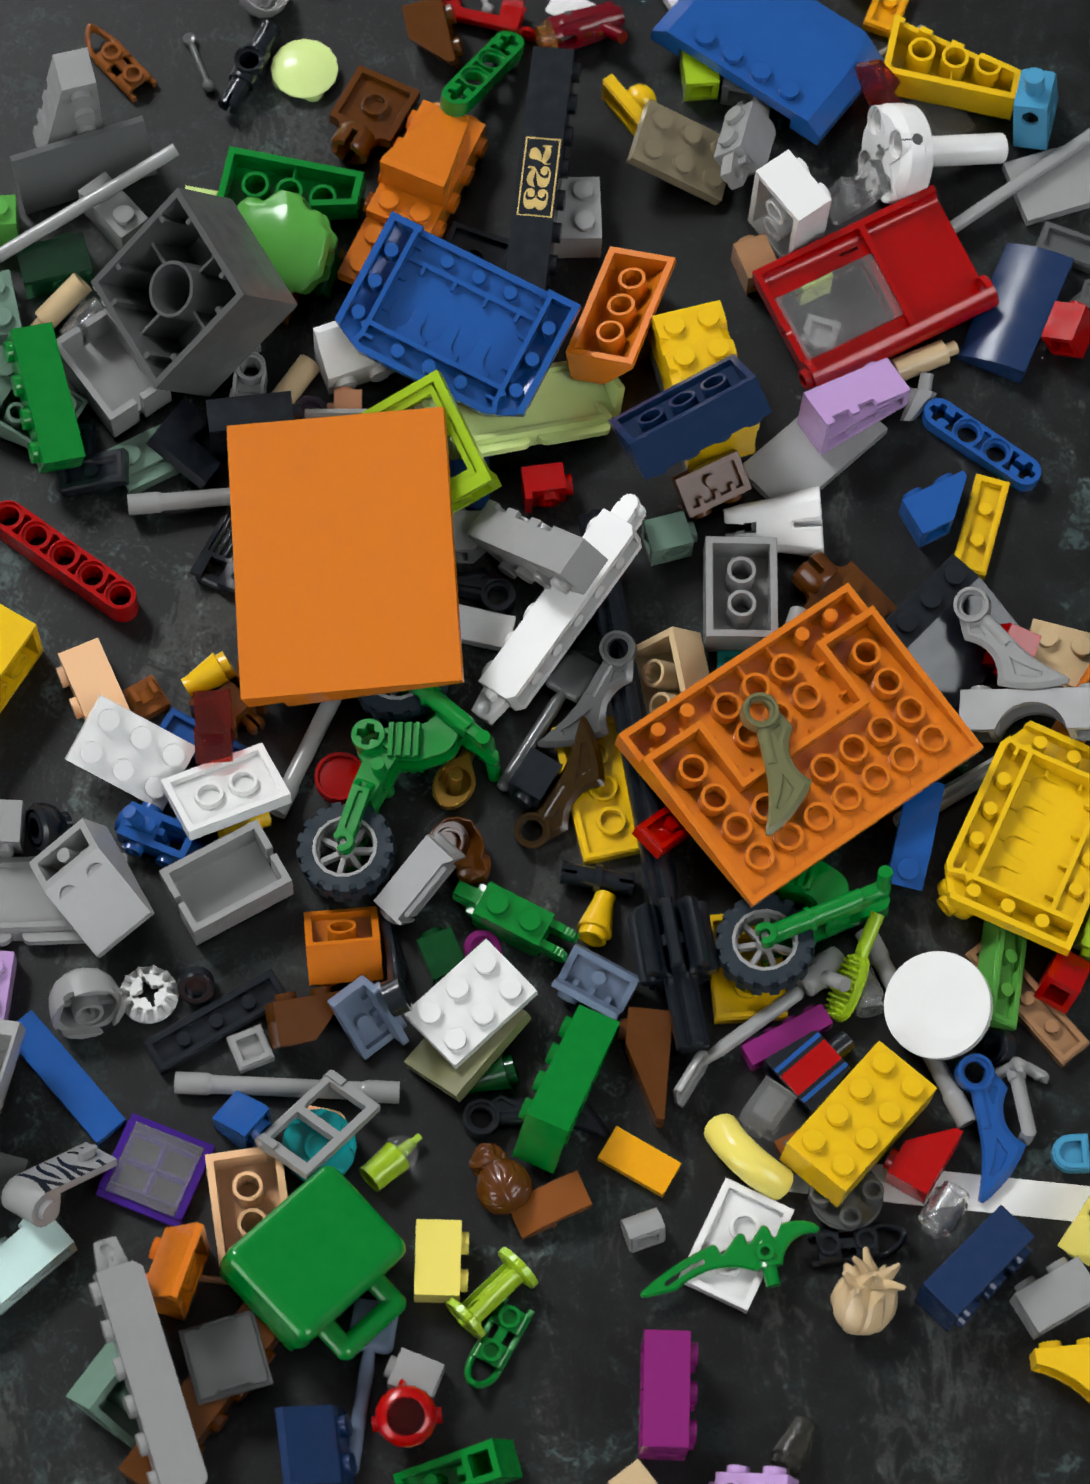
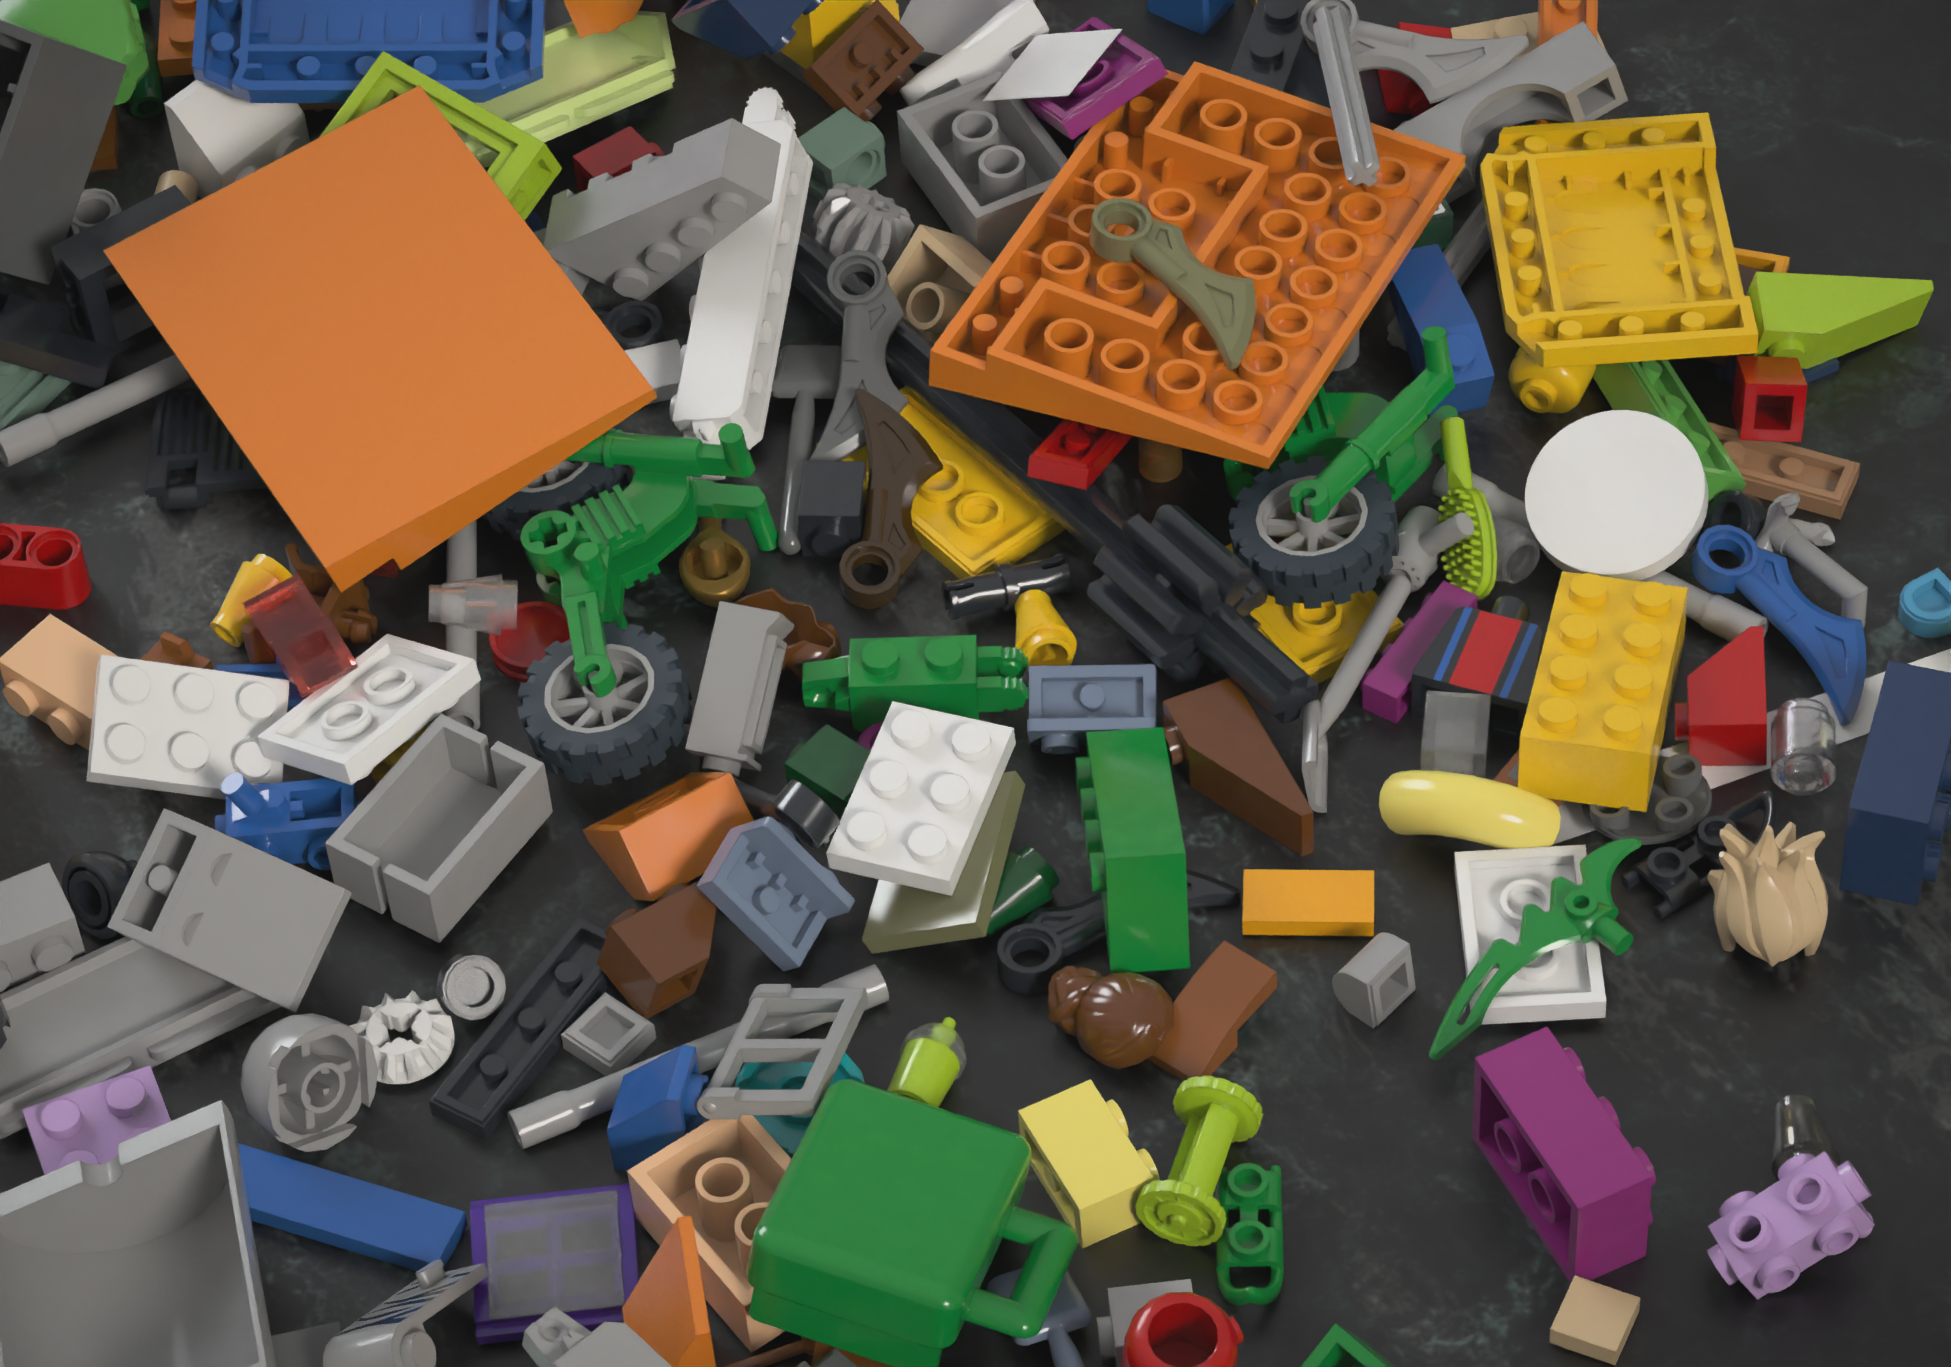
camera: 20 degrees left, 20 degrees down
(316, 749) = (476, 604): none -> clear cone
(650, 598) = (862, 220): none -> light grey gear
(801, 556) = (1052, 65): none -> white sticker
(814, 574) = (1111, 82): none -> magenta tile
(939, 676) = (1346, 97): none -> light grey axle

